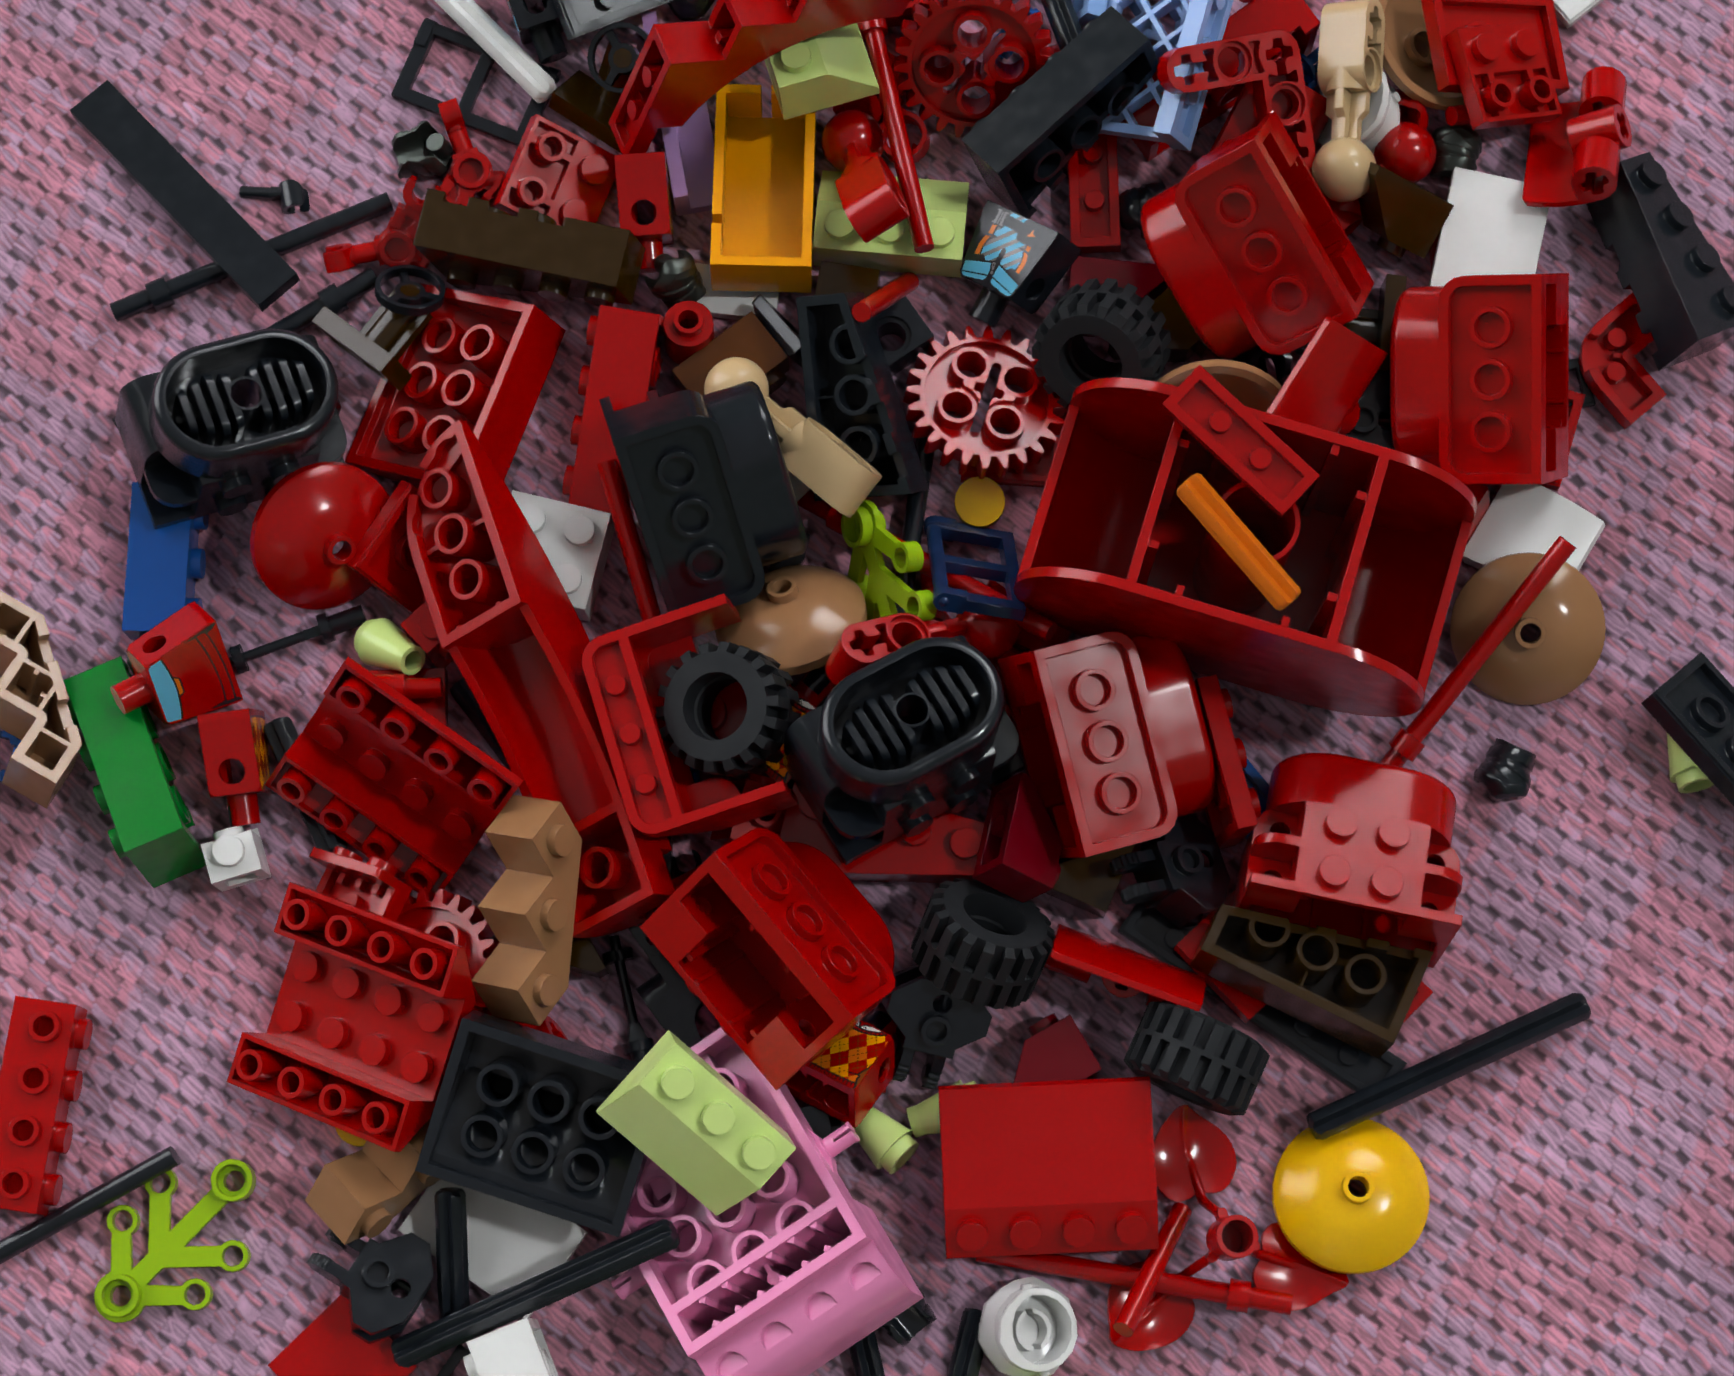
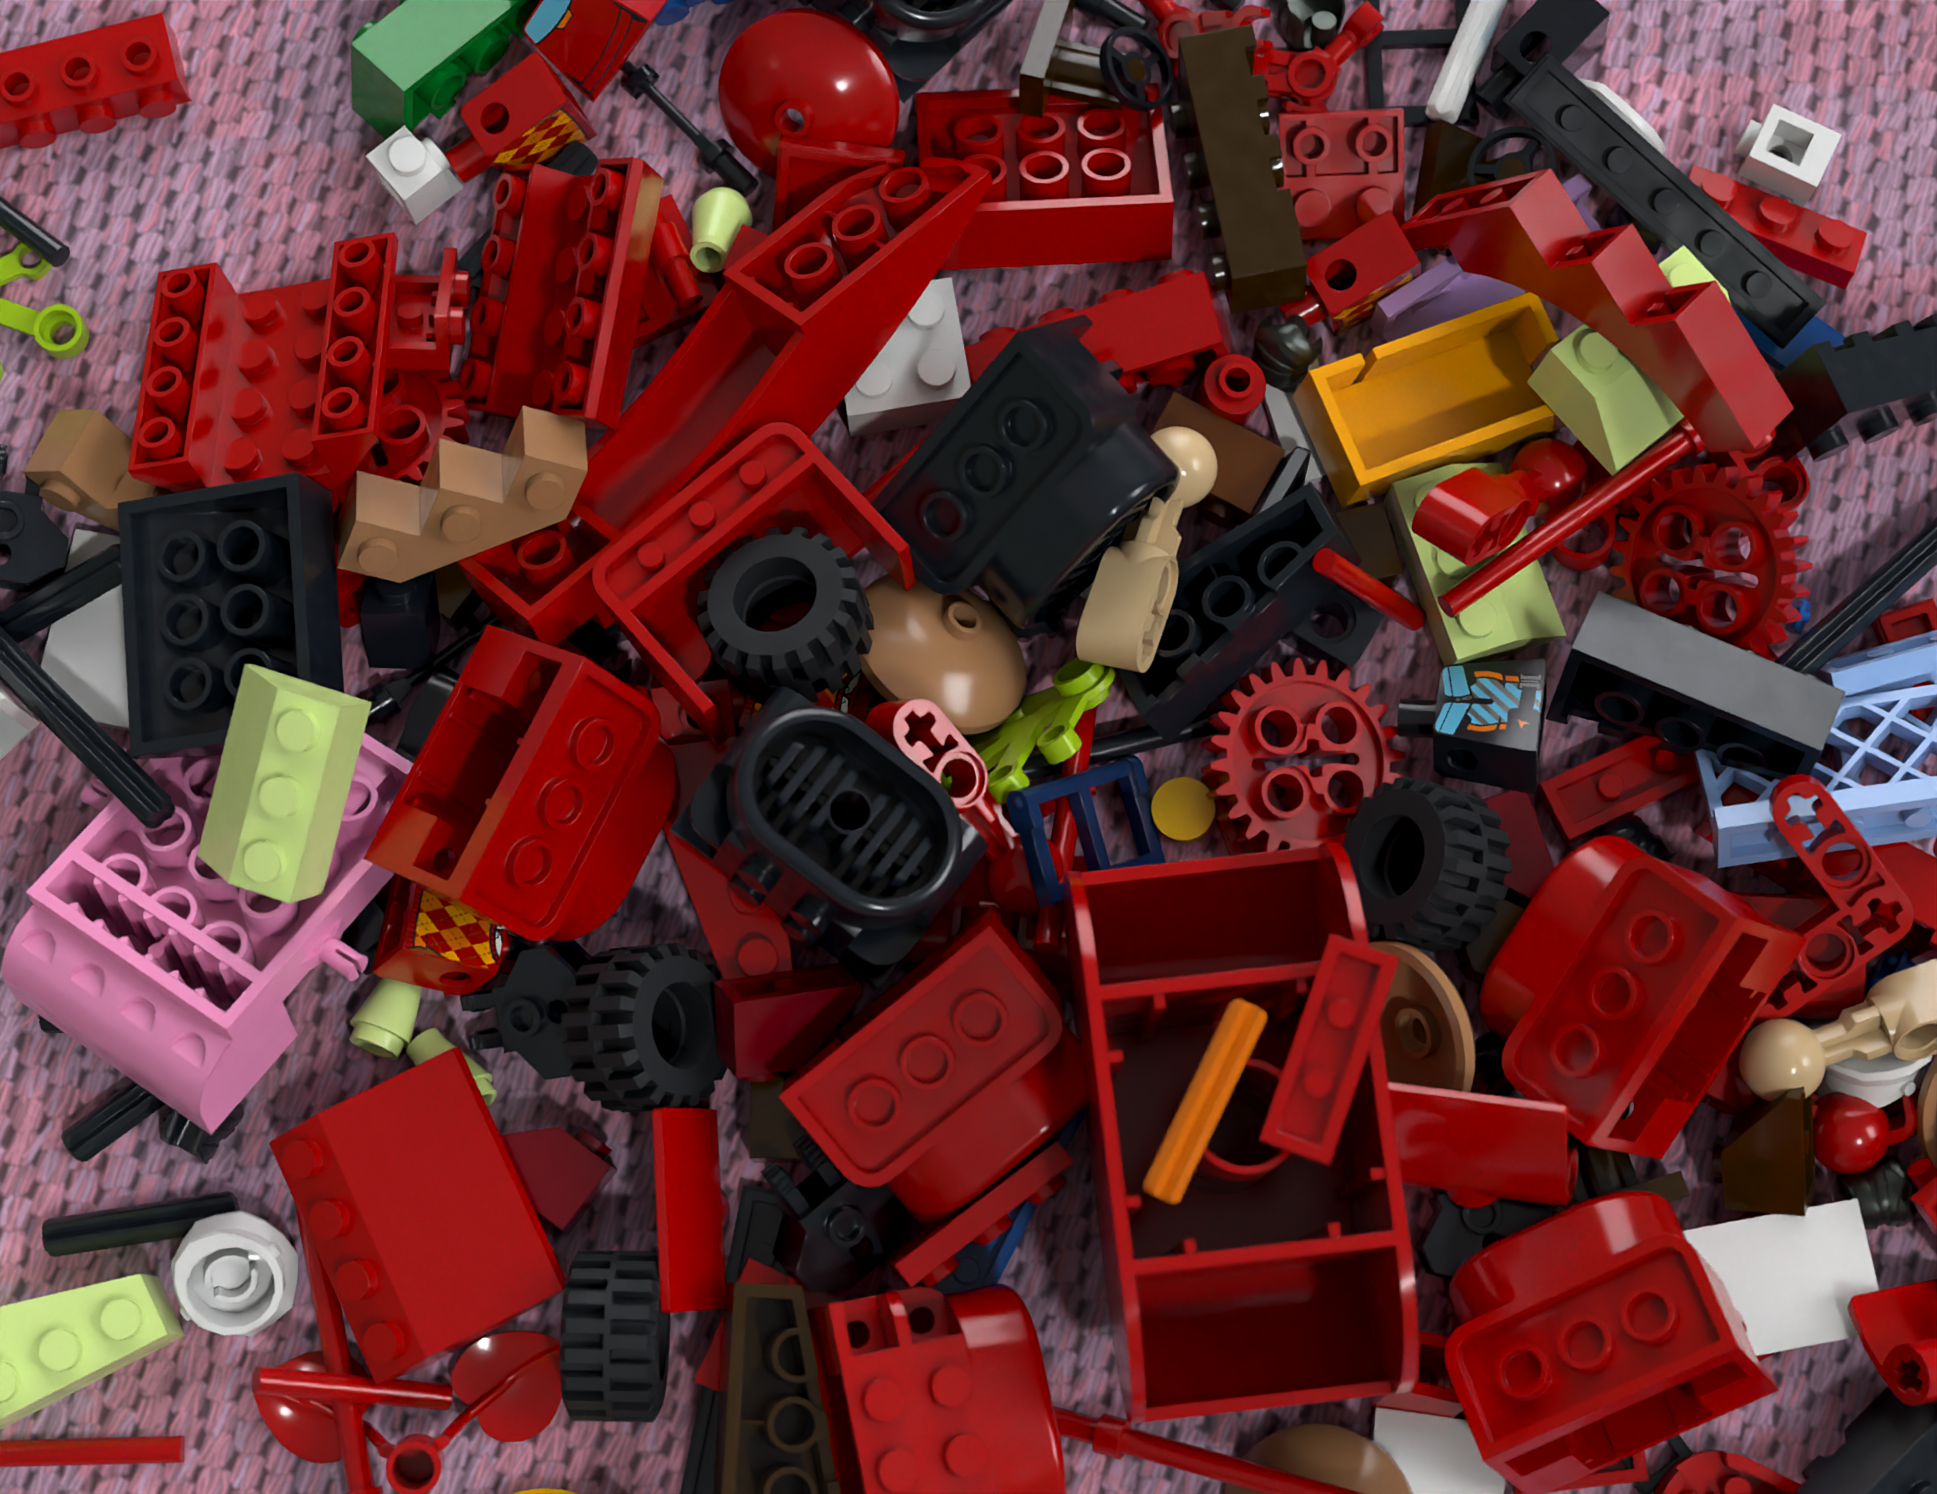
camera: 65 degrees right, 0 degrees up
(592, 1008) = (401, 622): none -> black brick

